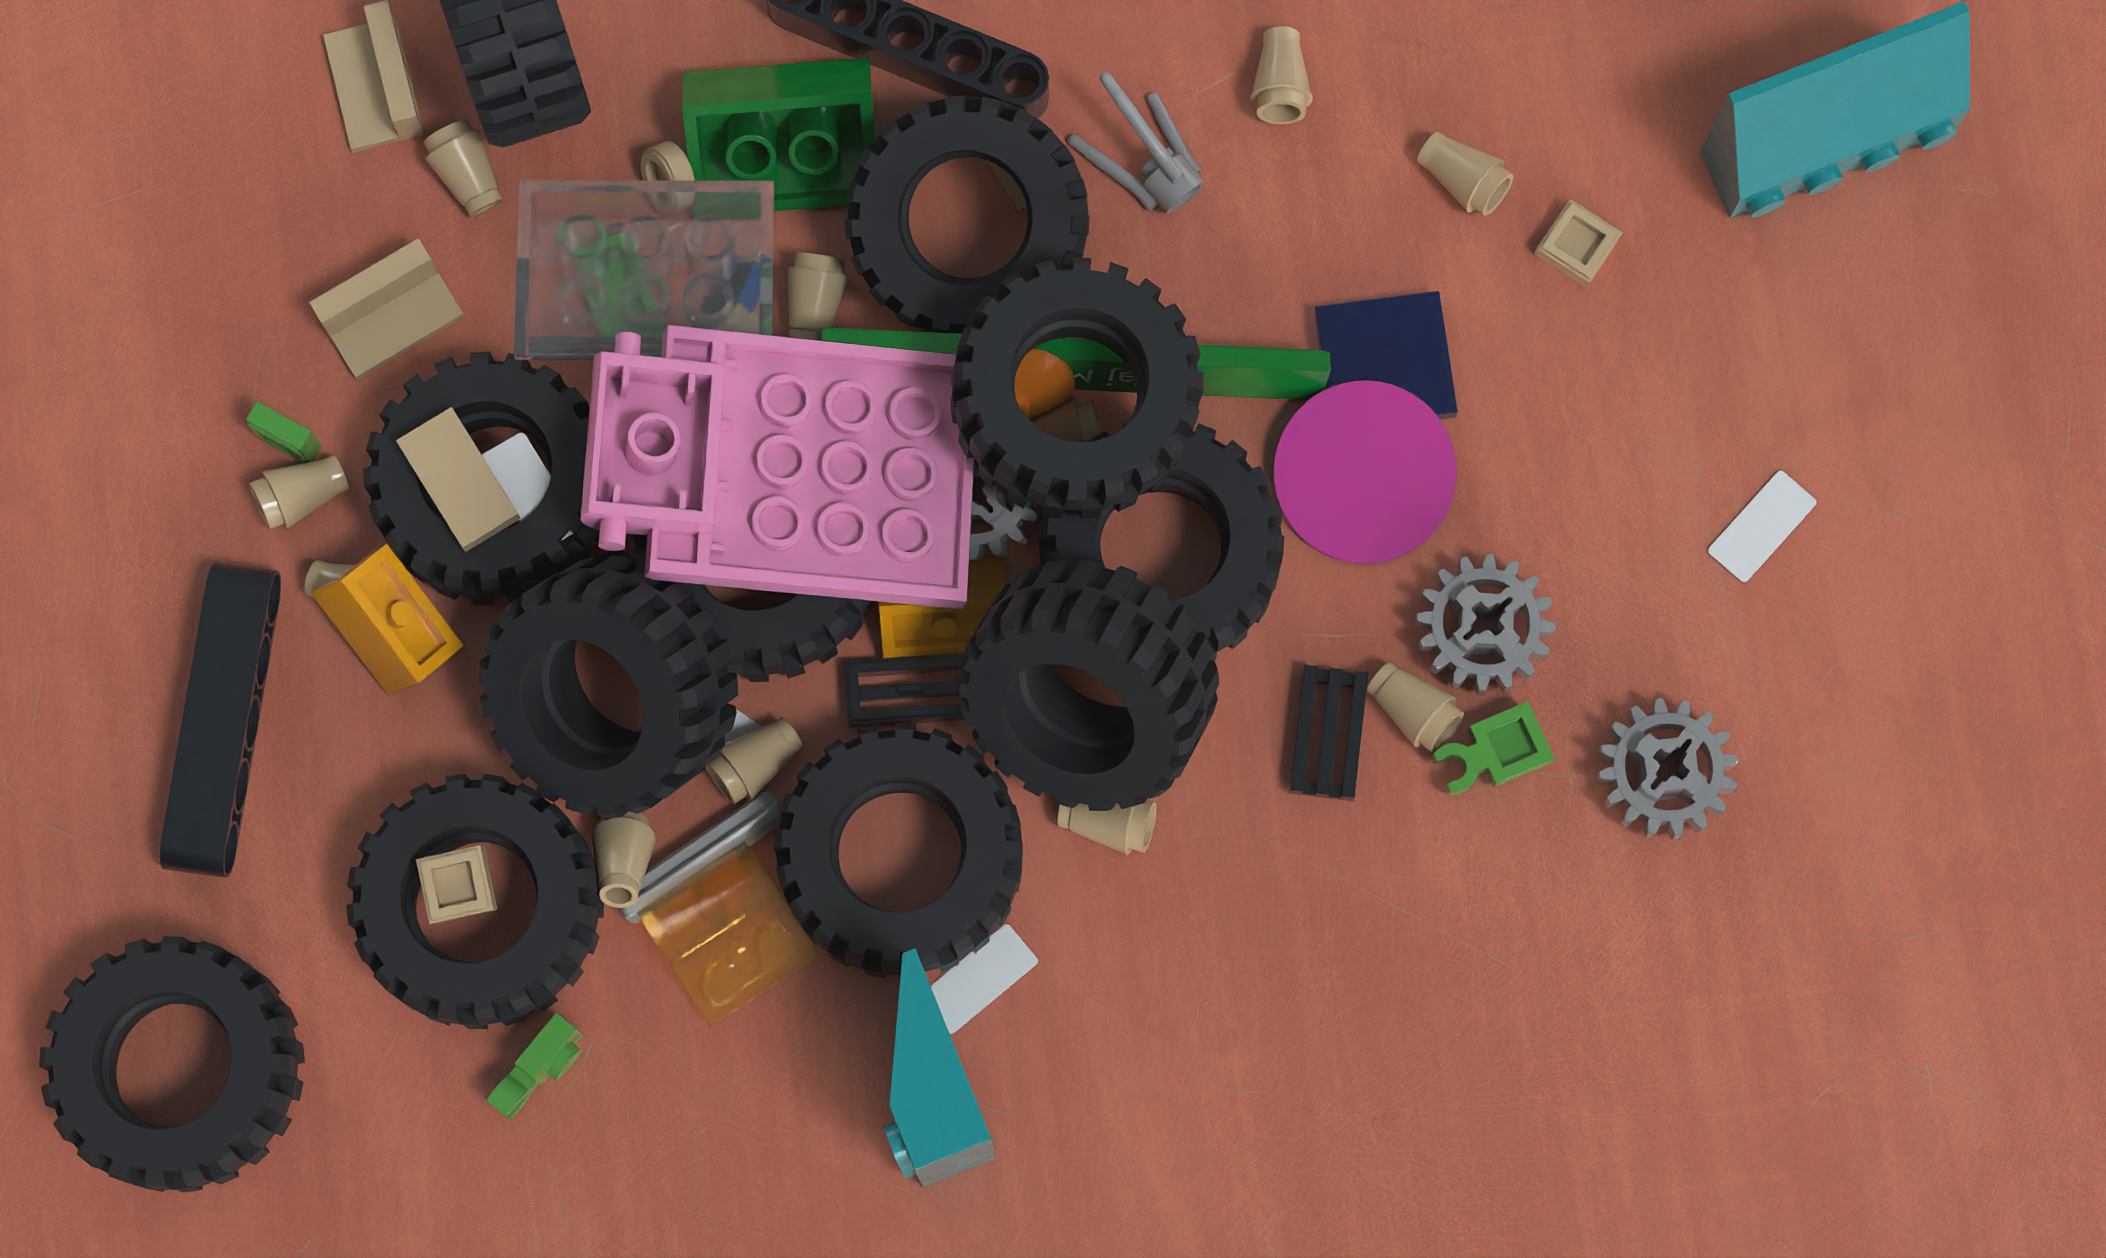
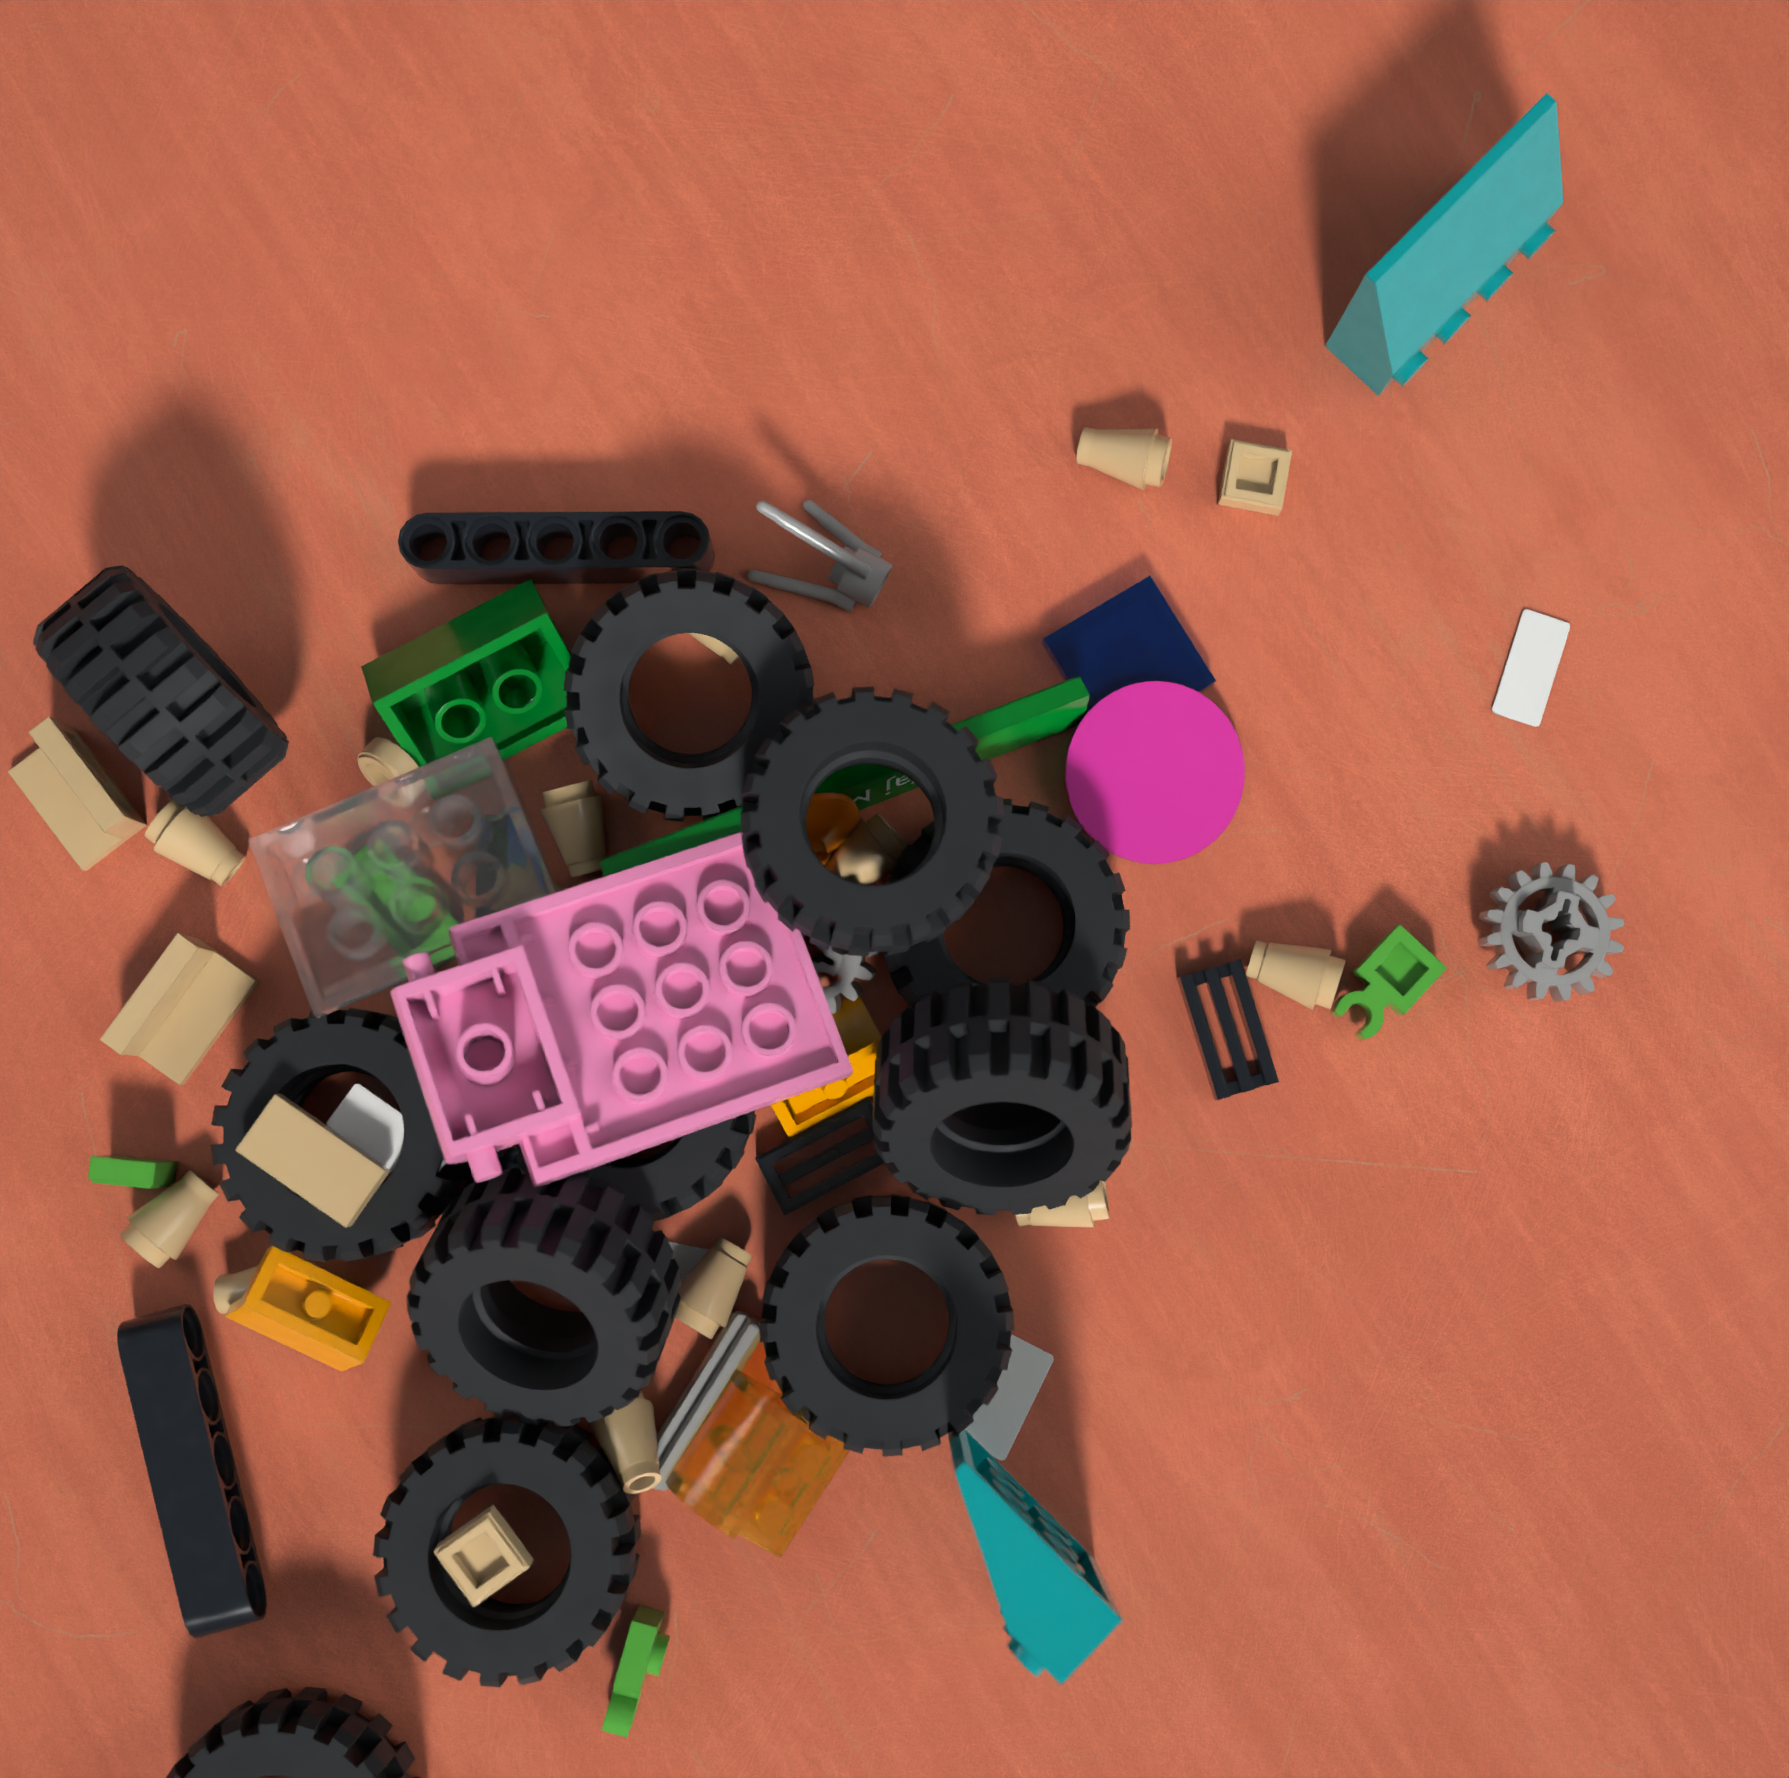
camera: 25 degrees left, 5 degrees up
(1281, 80) = (920, 439): tan cone -> none
(1504, 643) = (1353, 879): light grey gear -> none

